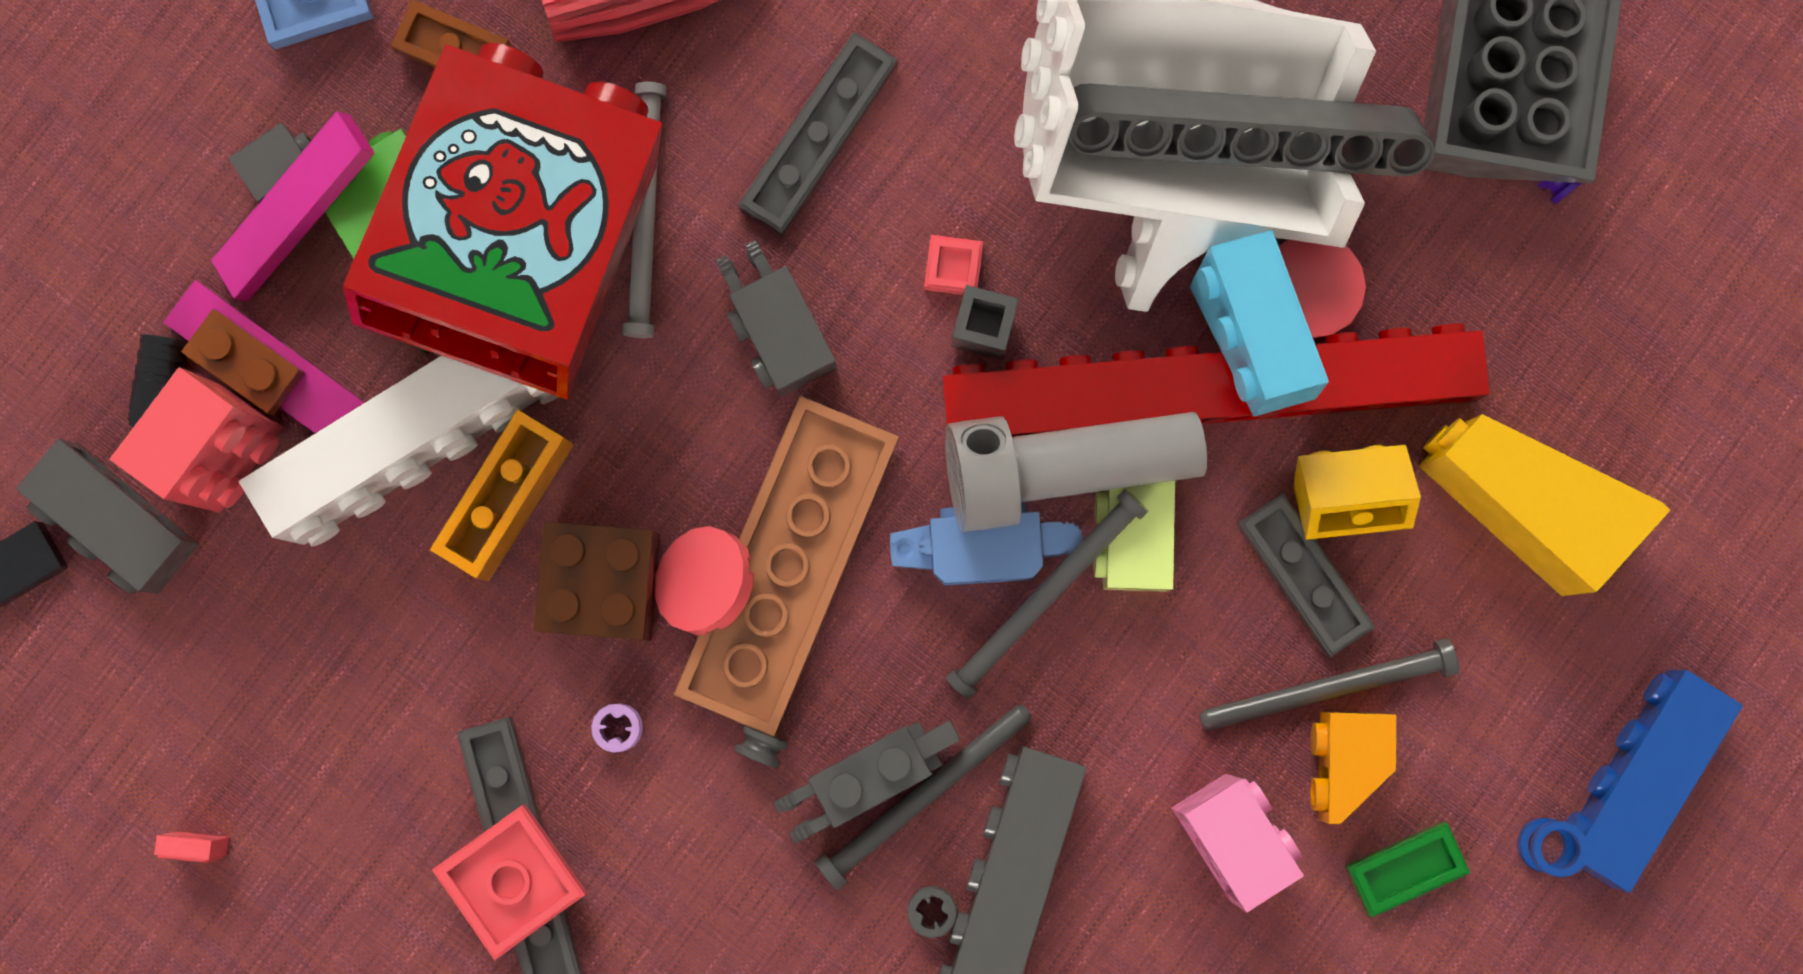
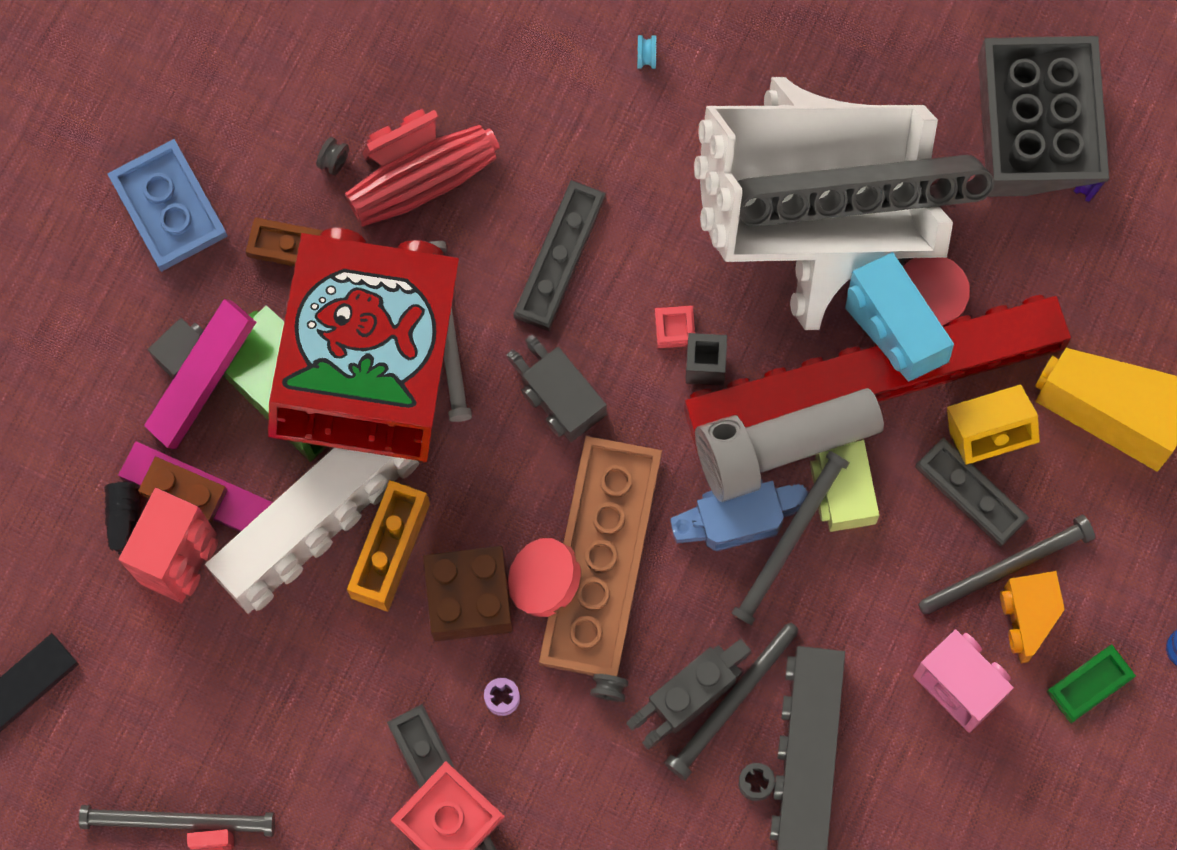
camera: 10 degrees left, 10 degrees down
(40, 778) = (174, 820): none -> dark grey bar
(106, 518) = (104, 620): dark grey brick -> none

